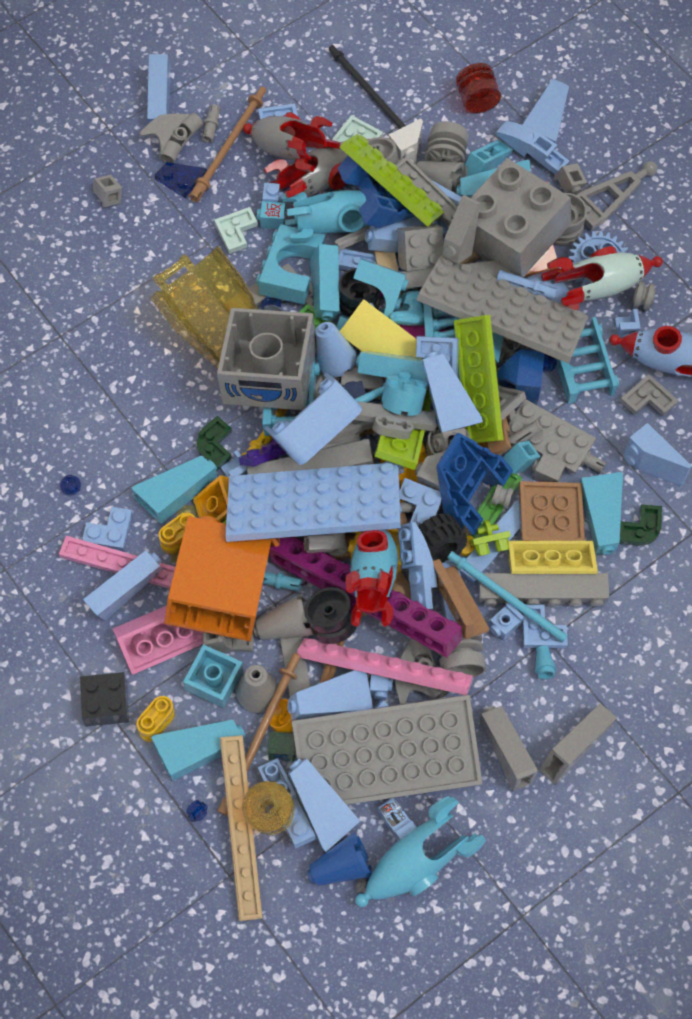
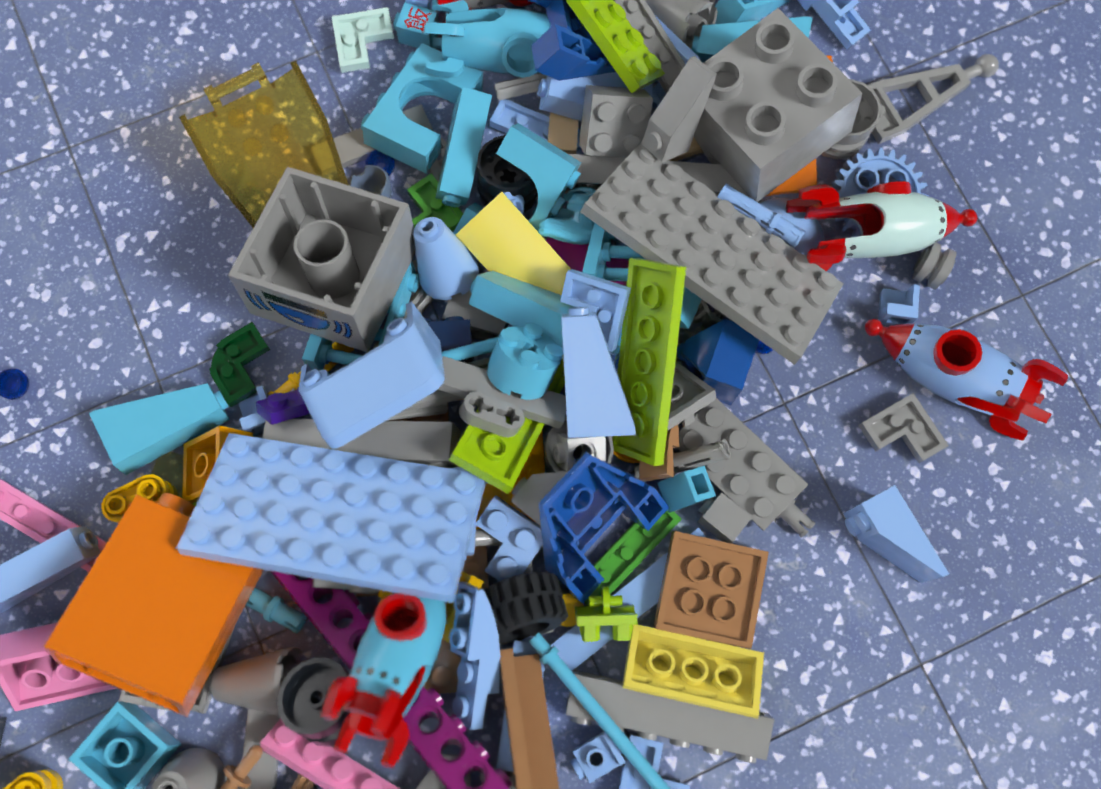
camera: 10 degrees right, 10 degrees up
(114, 533) = (54, 475): light blue plate -> none
(502, 496) = (642, 549): light grey wheel -> none
(568, 372) = (792, 392): medium azure fence -> none
(571, 179) = (867, 59): light grey brick -> none
(603, 510) = (792, 603): medium azure slope -> none
(646, 530) = (849, 650): dark green plate -> none

